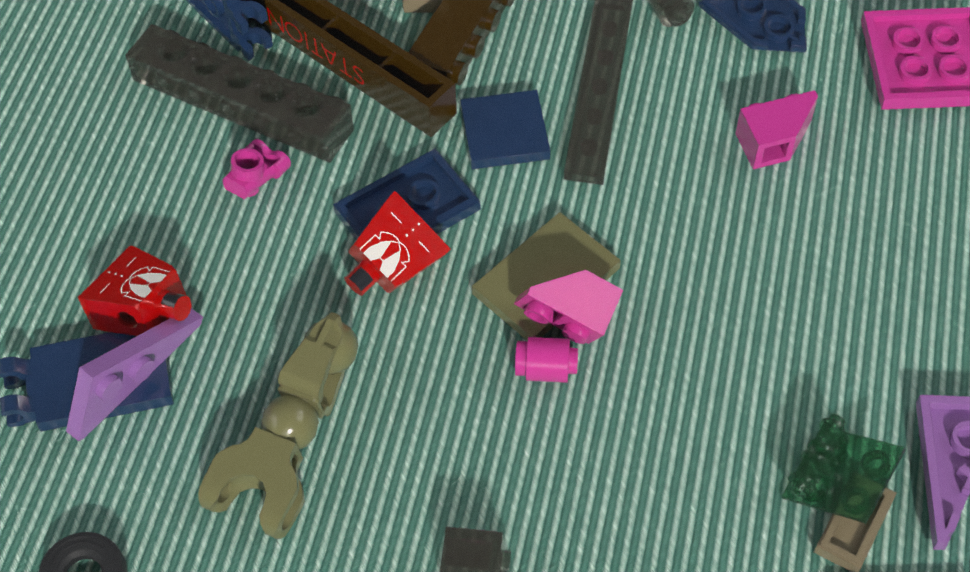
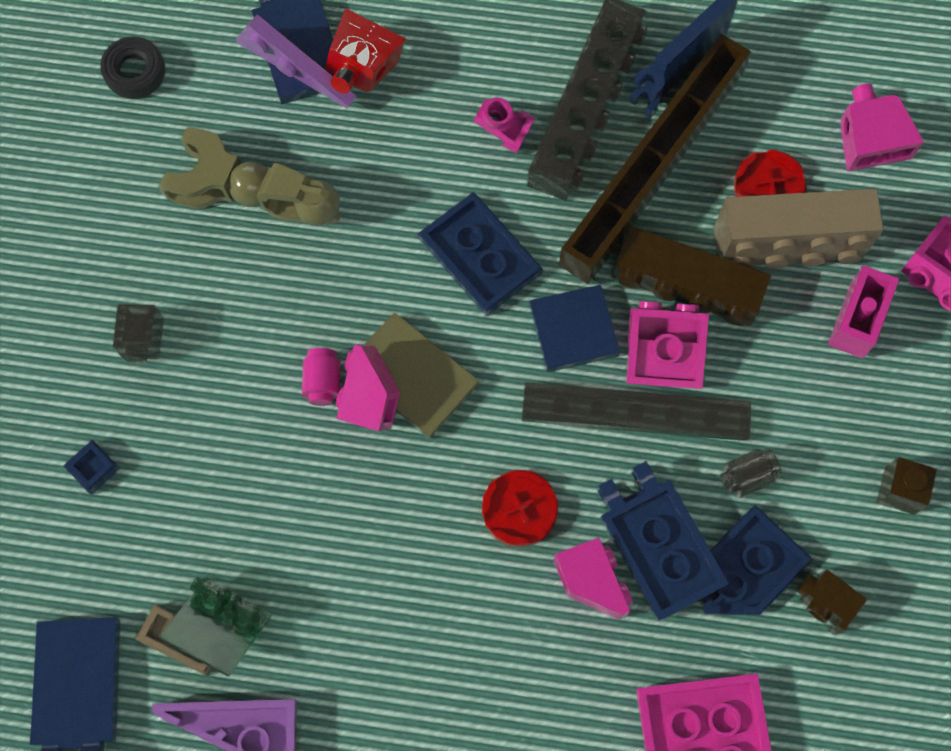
camera: 85 degrees right, 15 degrees up
(393, 248) = (418, 242): red torso -> none
(533, 48) = (667, 346): none -> dark pink plate
(699, 190) = (519, 508): none -> red tile
(737, 72) = (660, 544): none -> dark blue tile

